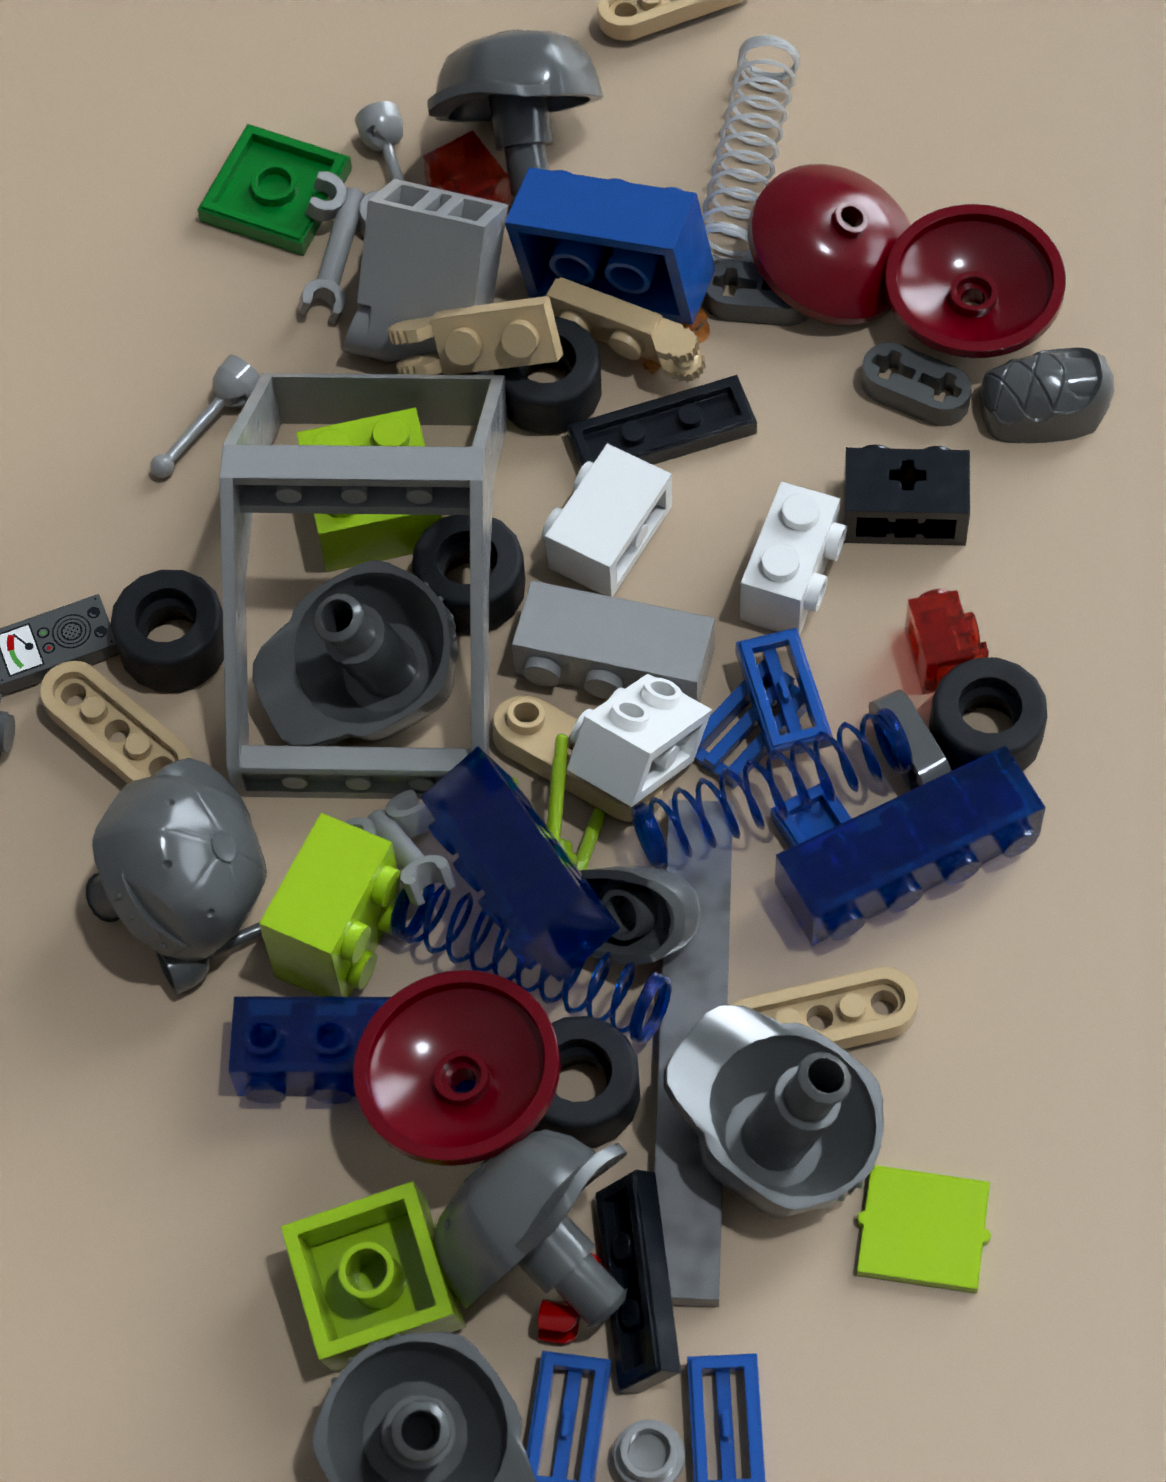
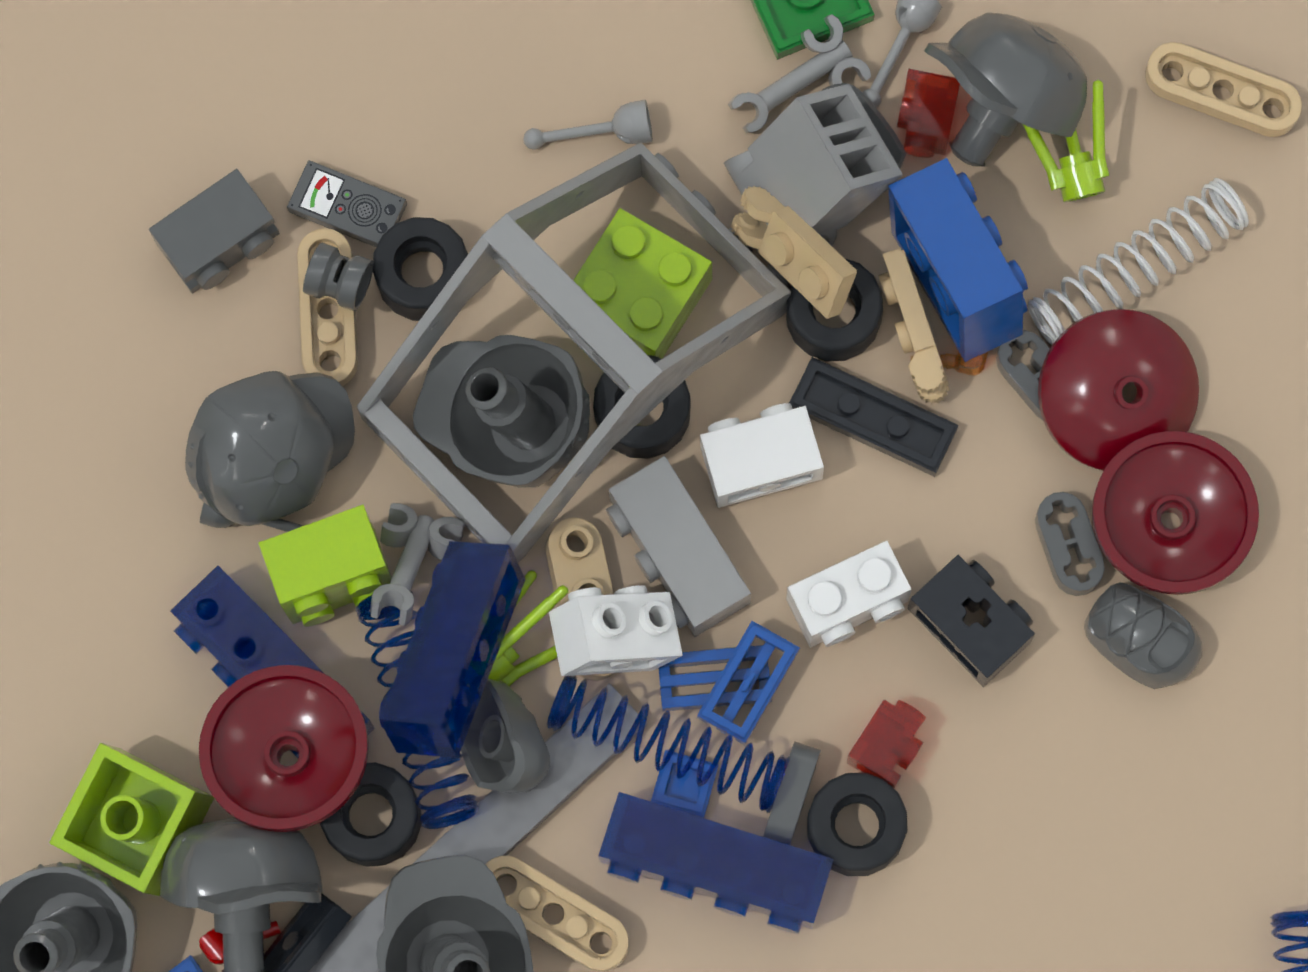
camera: 45 degrees right, 15 degrees up
(105, 682) = (338, 276): none -> dark grey wheel
(632, 127) = (1079, 174): none -> lime plant

